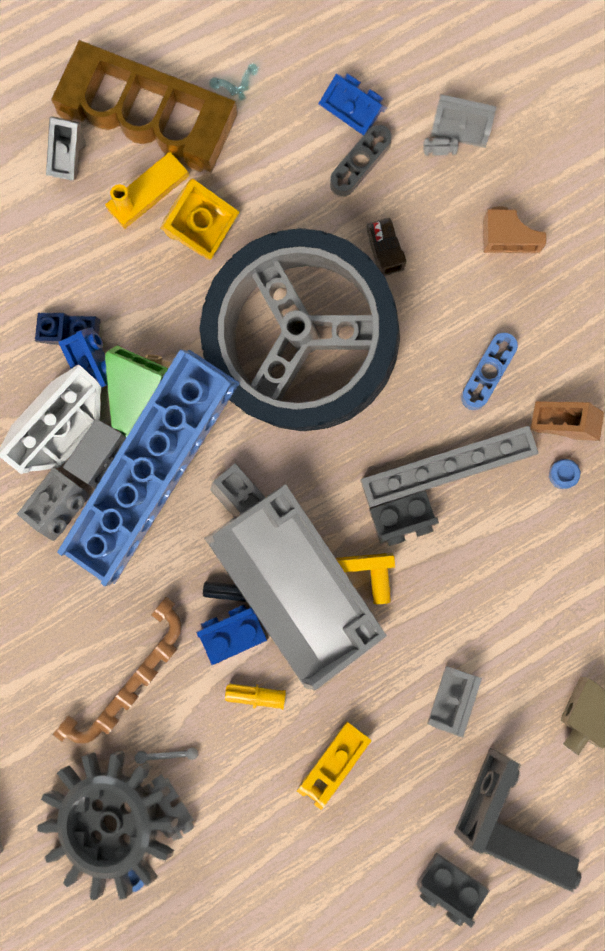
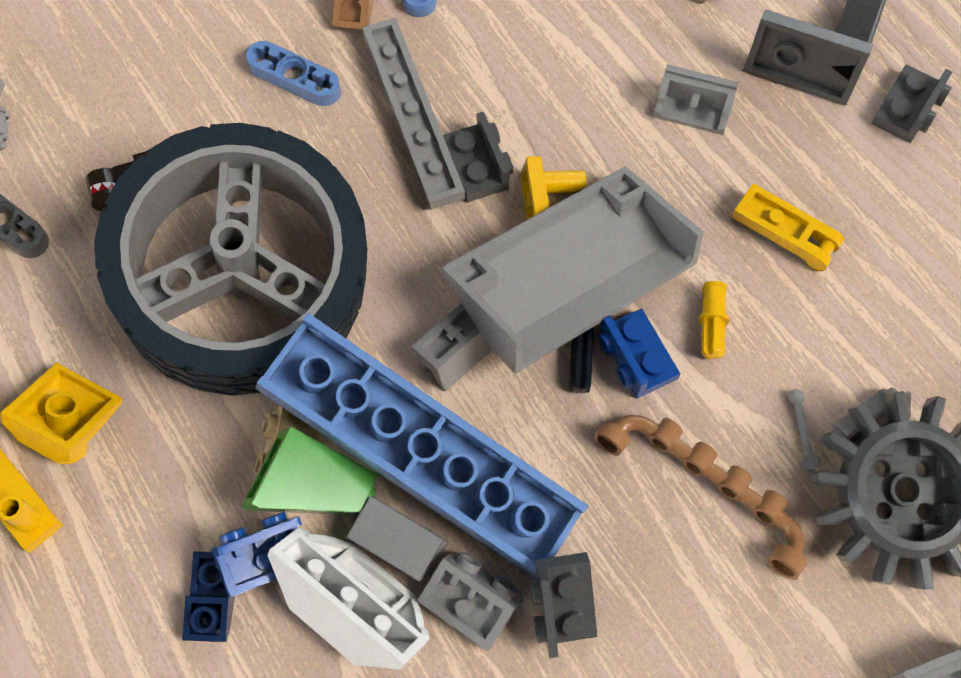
camera: 90 degrees left, 15 degrees down
(41, 564) = (565, 600): none -> dark grey bracket
(507, 234) = (119, 53): medium nougat arch -> none

